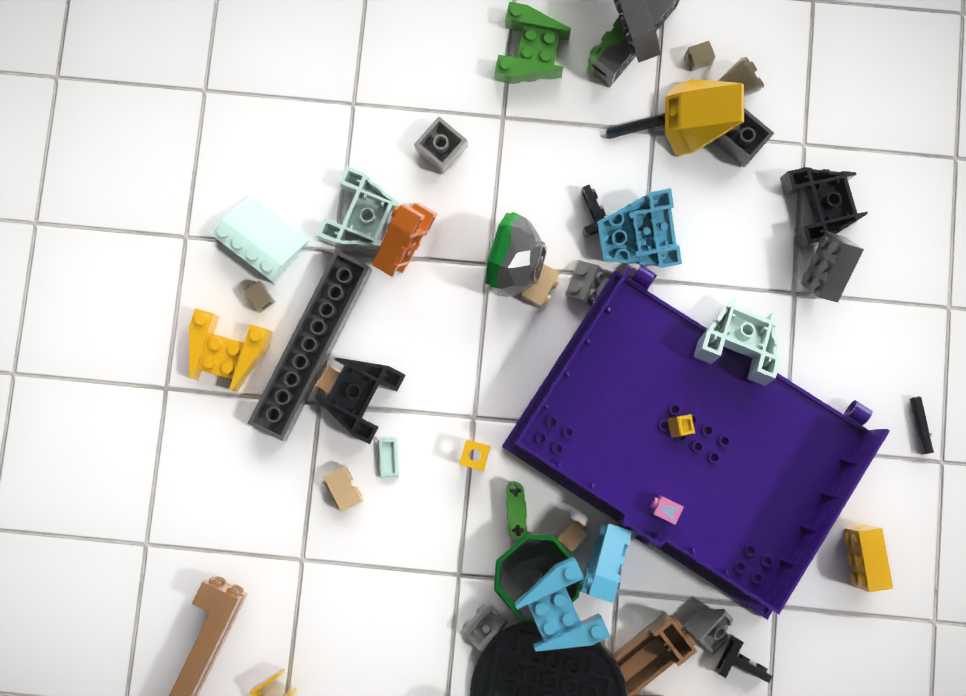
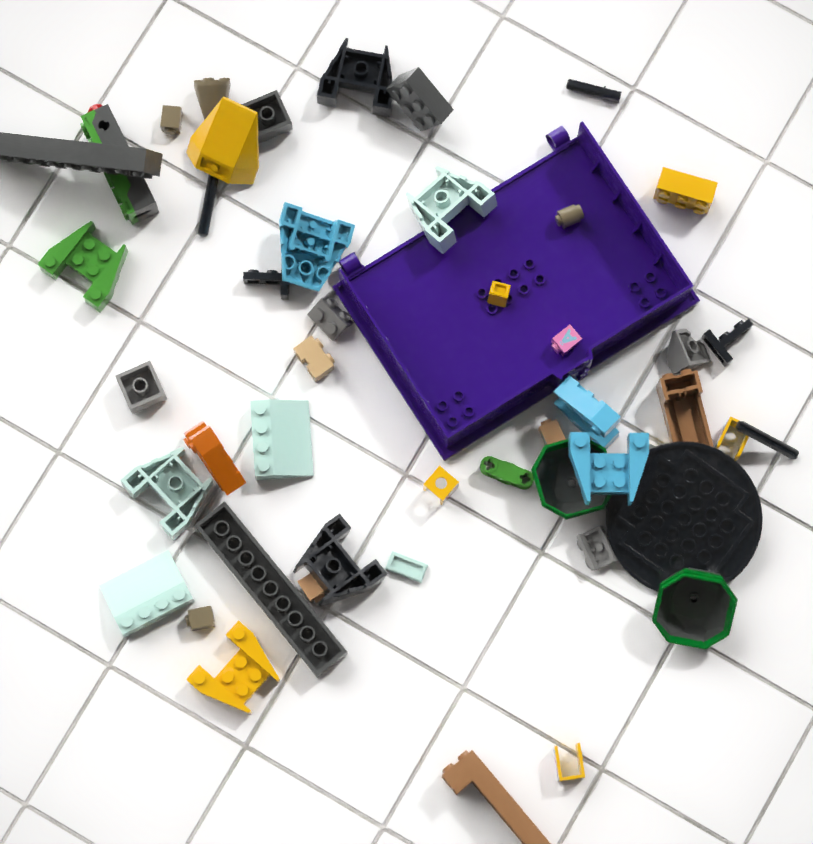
camera: 70 degrees left, 5 degrees down
(342, 489) = (416, 620): tan brick -> none
(452, 290) = (281, 439): none -> light aqua slope
(515, 257) = (282, 364): dark grey rock -> none
(788, 458) = (569, 216): none -> dark tan brick

